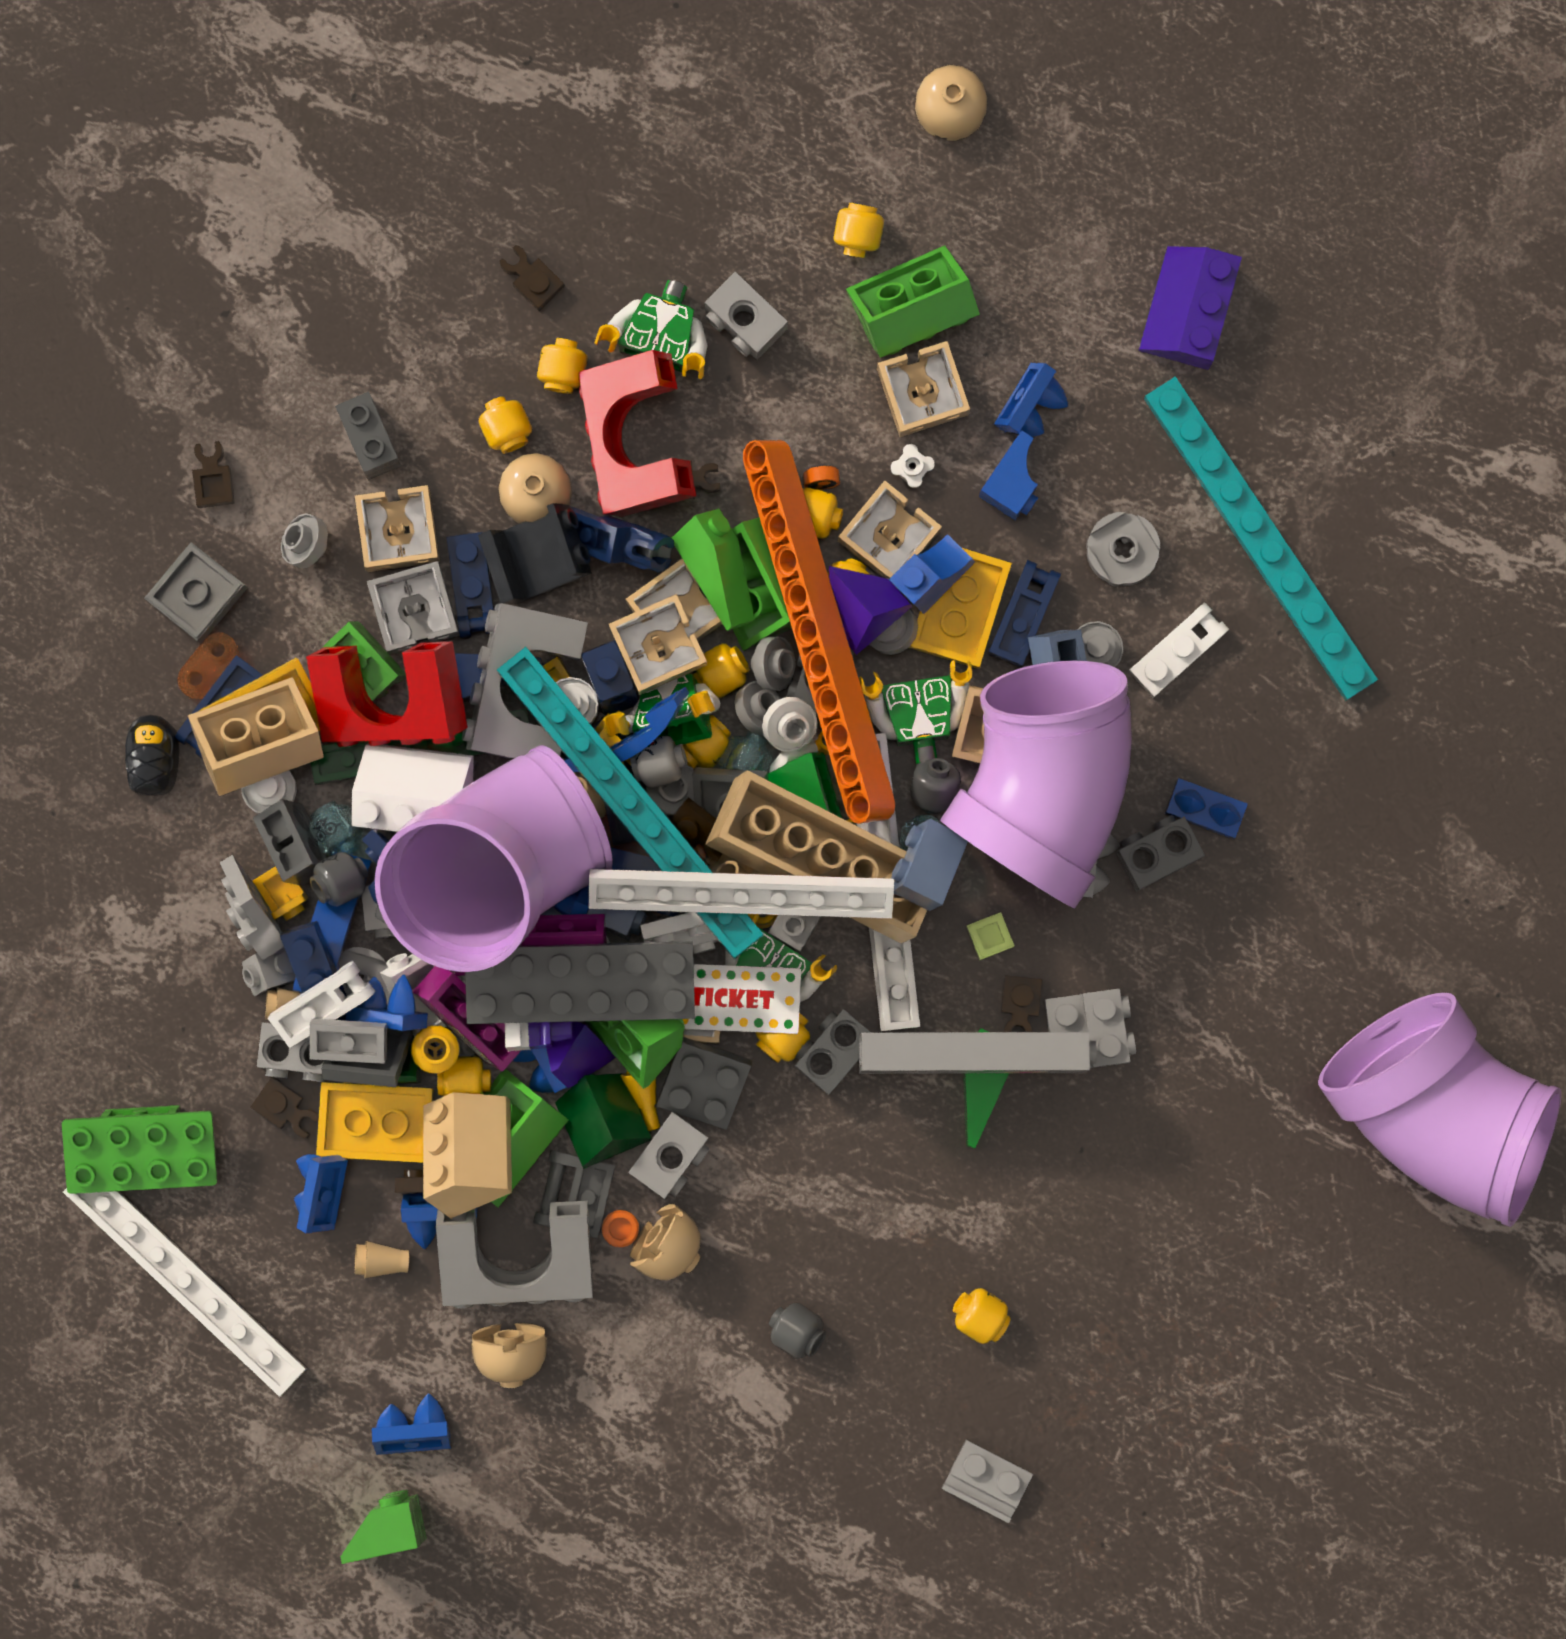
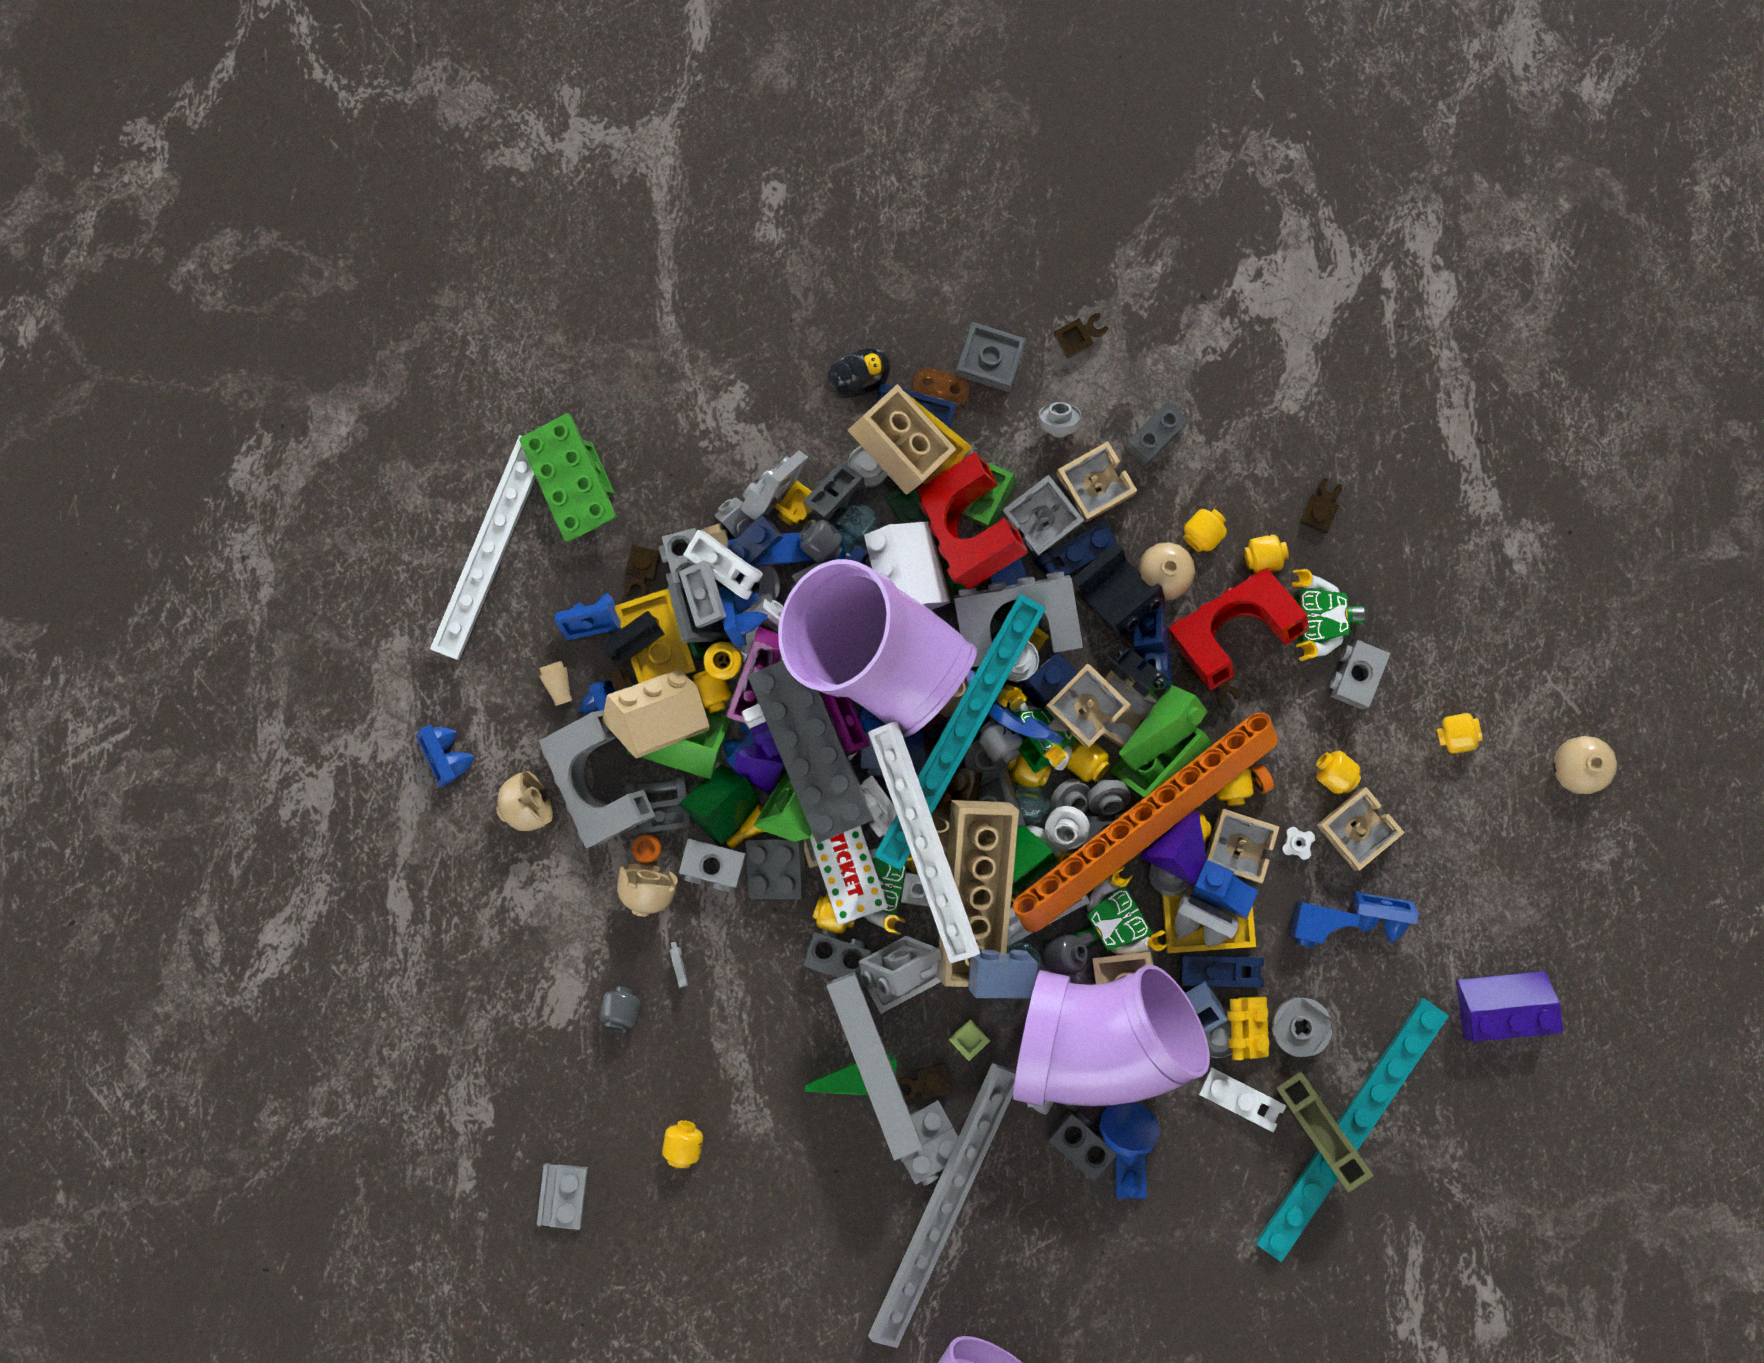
camera: 70 degrees right, 0 degrees up
(365, 1148) = (632, 639): none -> black hinge
(388, 1528) = (358, 768): bright green slope -> none
(655, 565) = (1145, 681): none -> black hinge
(757, 1240) = (678, 965): none -> light grey piece
(848, 387) = (1338, 772): none -> yellow head
(872, 982) = (898, 966): none -> light grey plate
(913, 301) = (1423, 795): bright green slope -> none
(944, 616) = (1194, 912): none -> light grey tile
(1100, 609) = (1248, 1028): none -> yellow plate
(1160, 791) = (1129, 1129): none -> blue tile
(1167, 1037) = (944, 1206): none -> light grey plate
(1249, 571) = (1325, 1132): none -> olive arch

